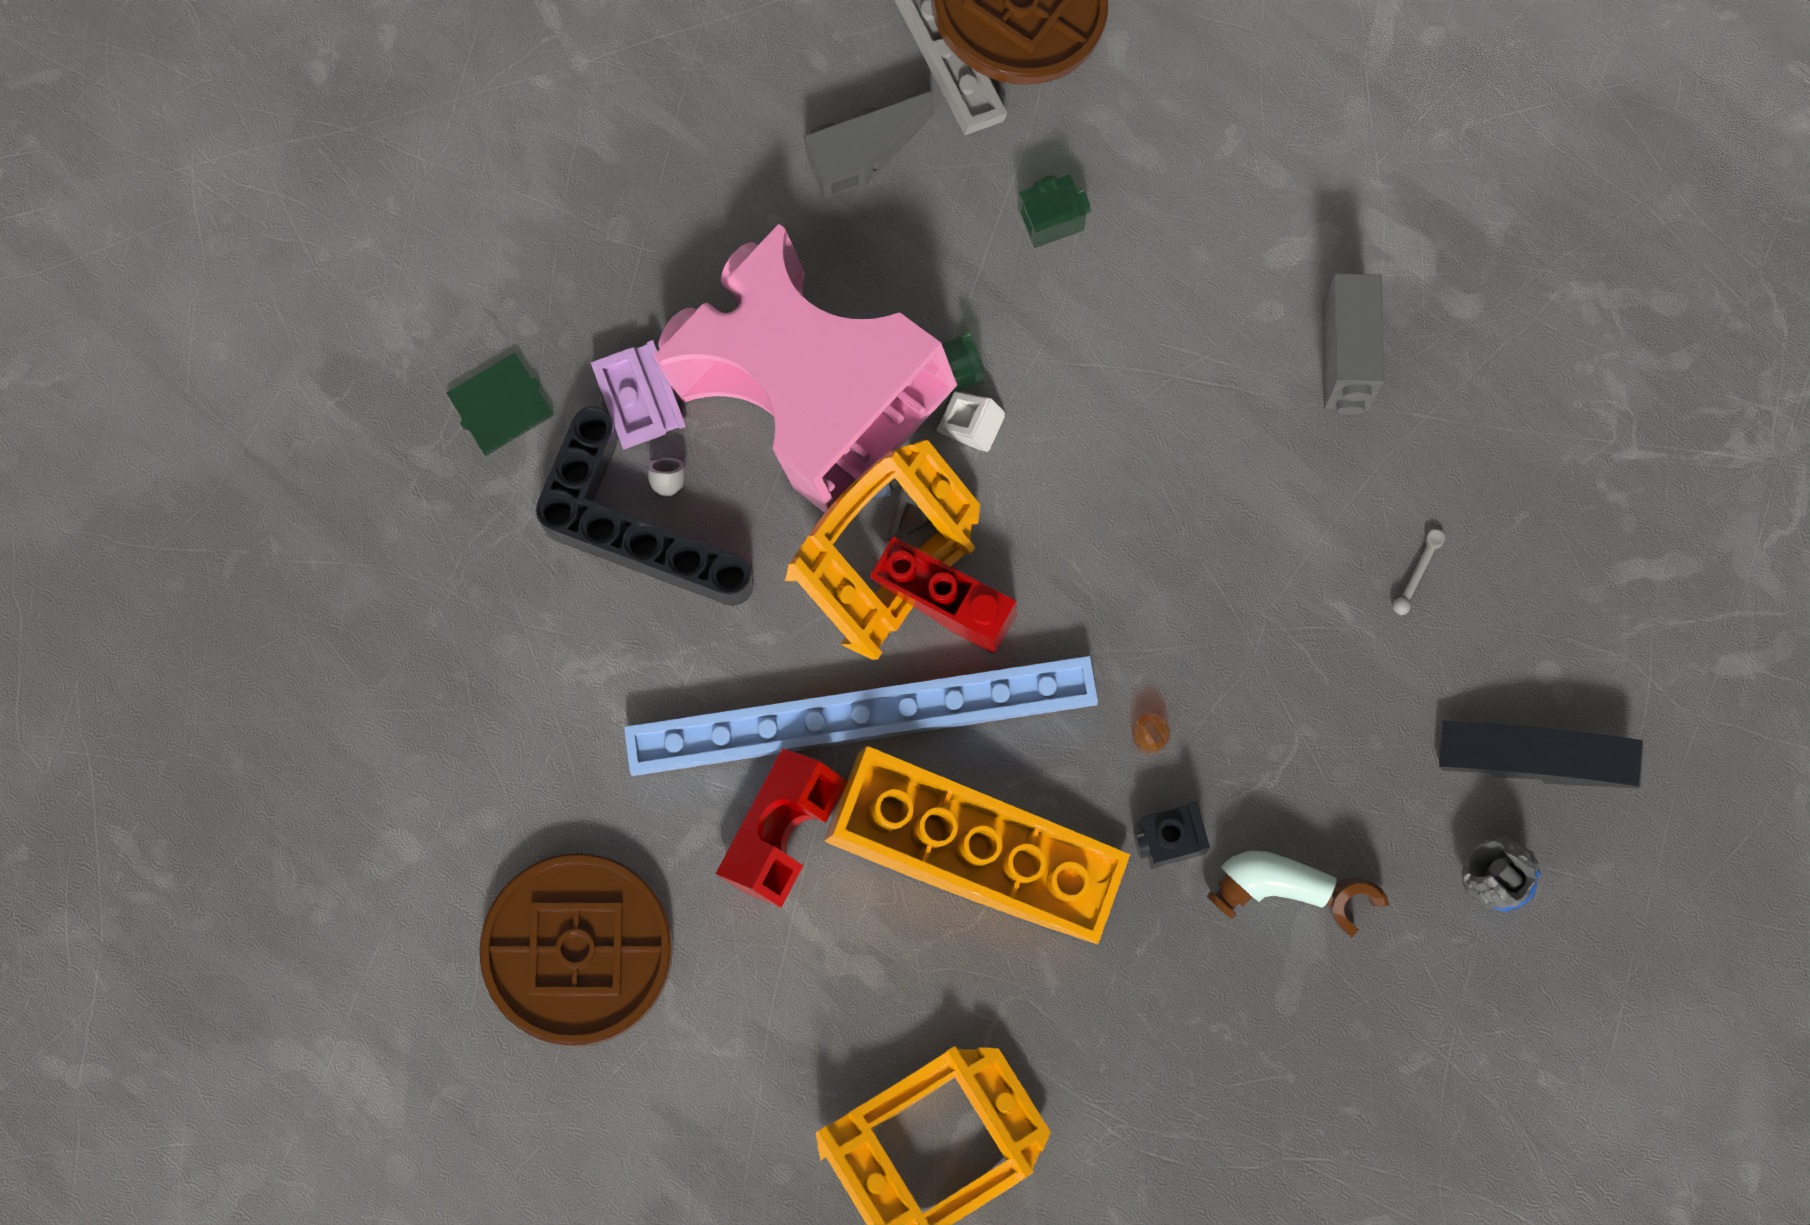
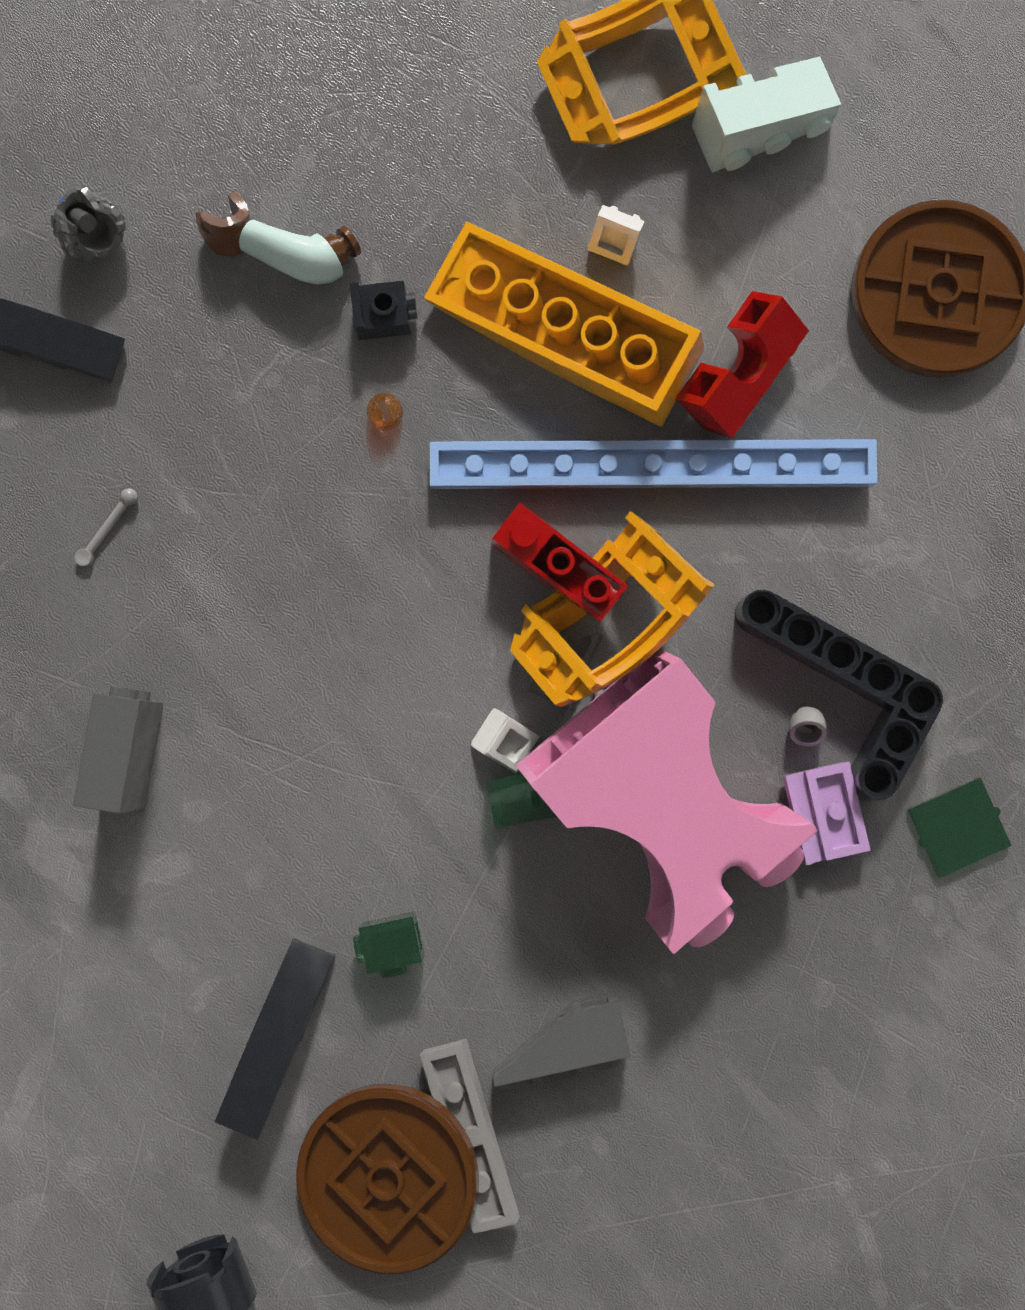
camera: 175 degrees left, 10 degrees up
(789, 1108) = (764, 113): none -> light aqua wedge
(934, 953) = (615, 234): none -> tile
(1148, 108) = (274, 1039): none -> black slope

